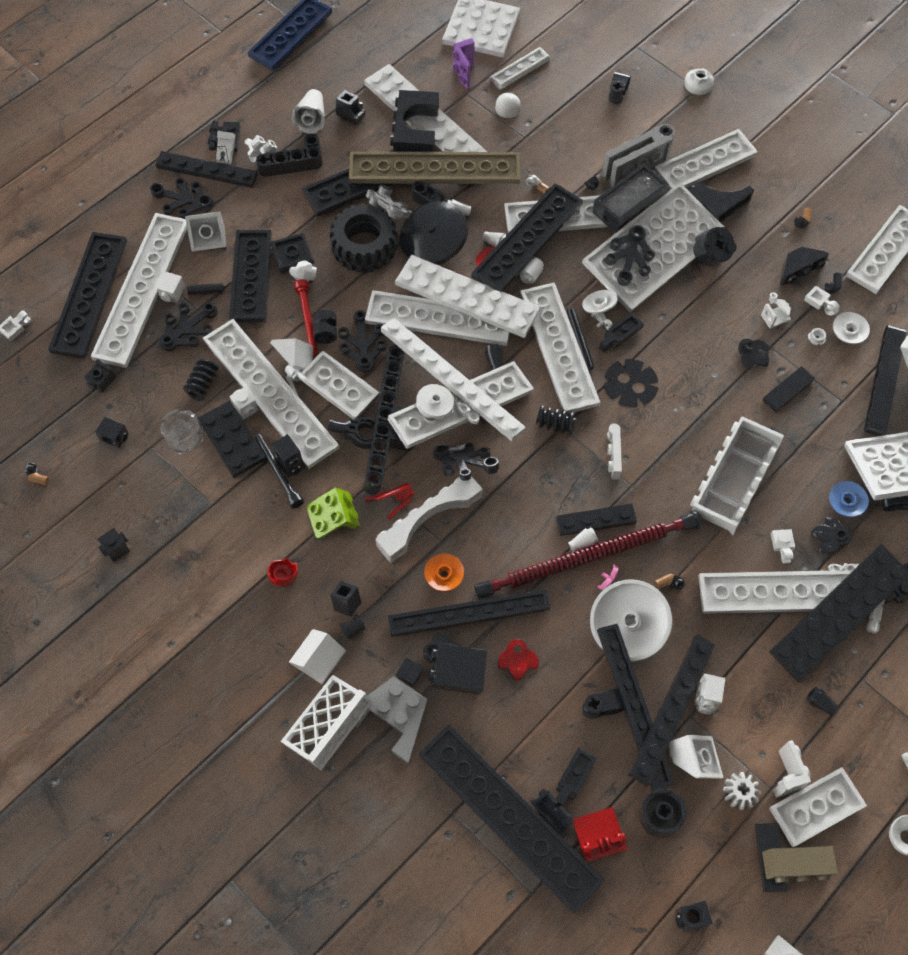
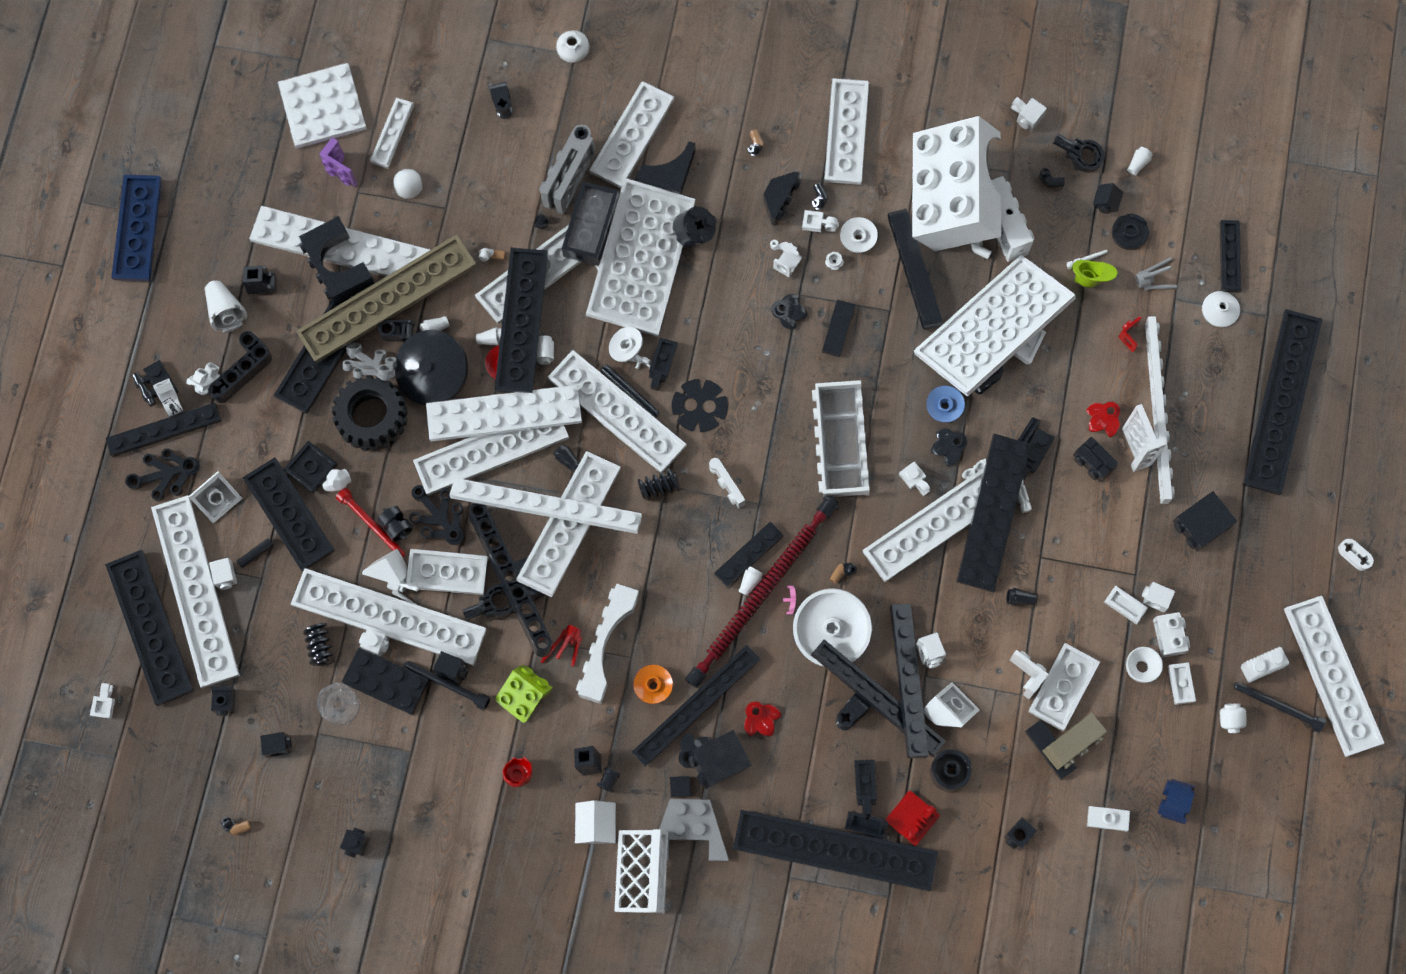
camera: 30 degrees left, 10 degrees up
(186, 328) = (266, 603): black plant -> none
(431, 408) = (547, 547): white plate -> none
(444, 453) = (582, 577): black plant -> none
(464, 410) = (577, 529): white piece -> none
(631, 253) = (625, 280): black plant -> none
(746, 785) = (1001, 705): white gear -> none

